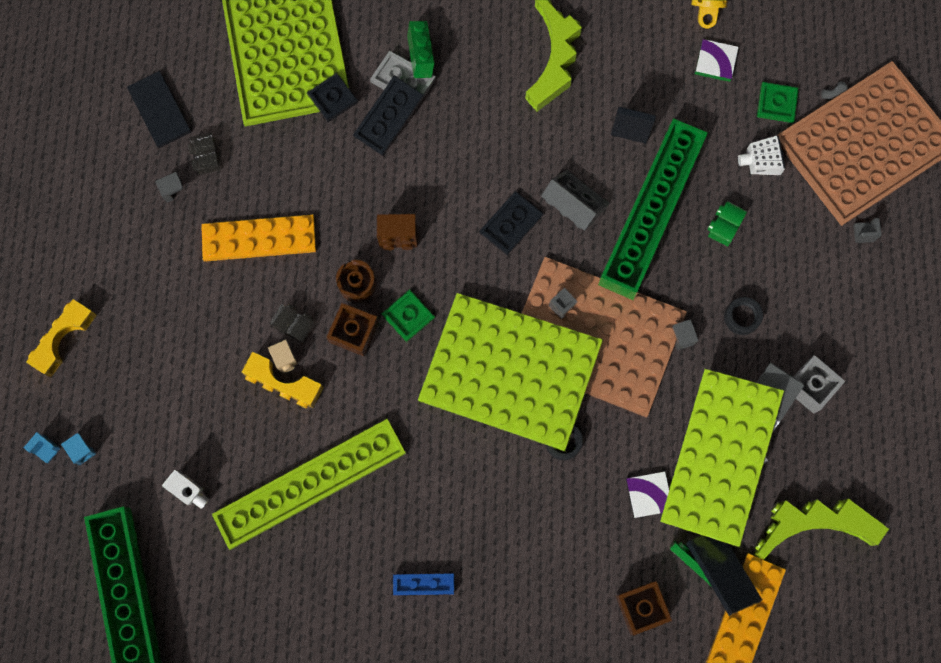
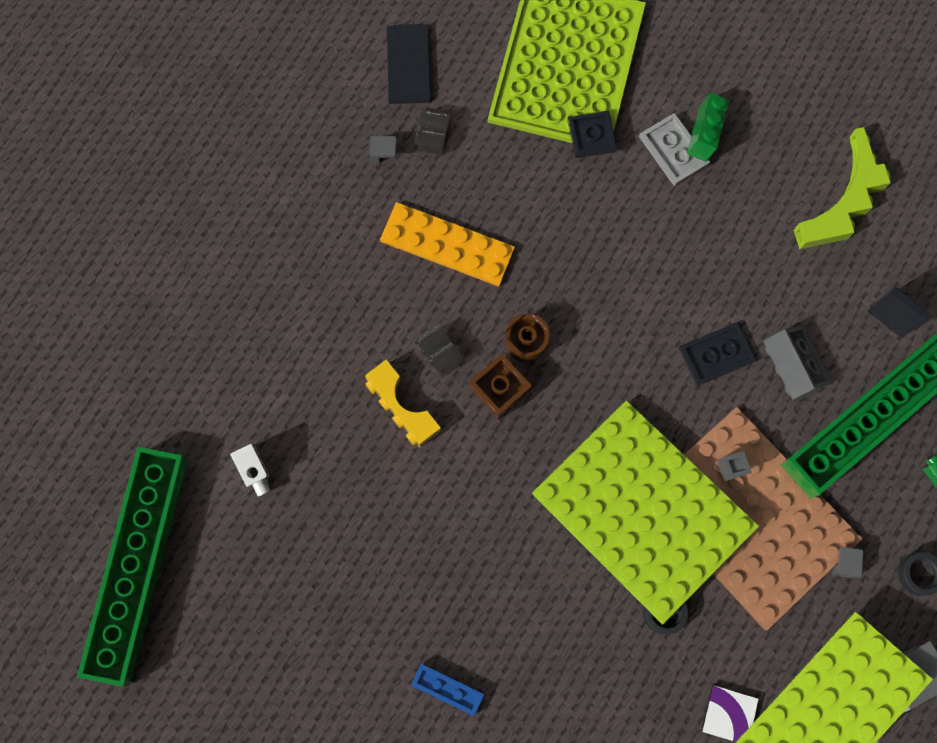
camera: 20 degrees right, 0 degrees up
(42, 447) = (129, 354): dark azure panel -> none
(46, 355) = (177, 262): yellow arch -> none
(78, 449) = (164, 373): dark azure panel -> none
(283, 356) = (414, 380): tan brick -> none
(308, 484) = (379, 525): lime plate -> none
(388, 115) = (641, 180): black tile -> none
(397, 231) = (594, 306): reddish brown brick -> none
(408, 316) = (563, 399): green tile -> none

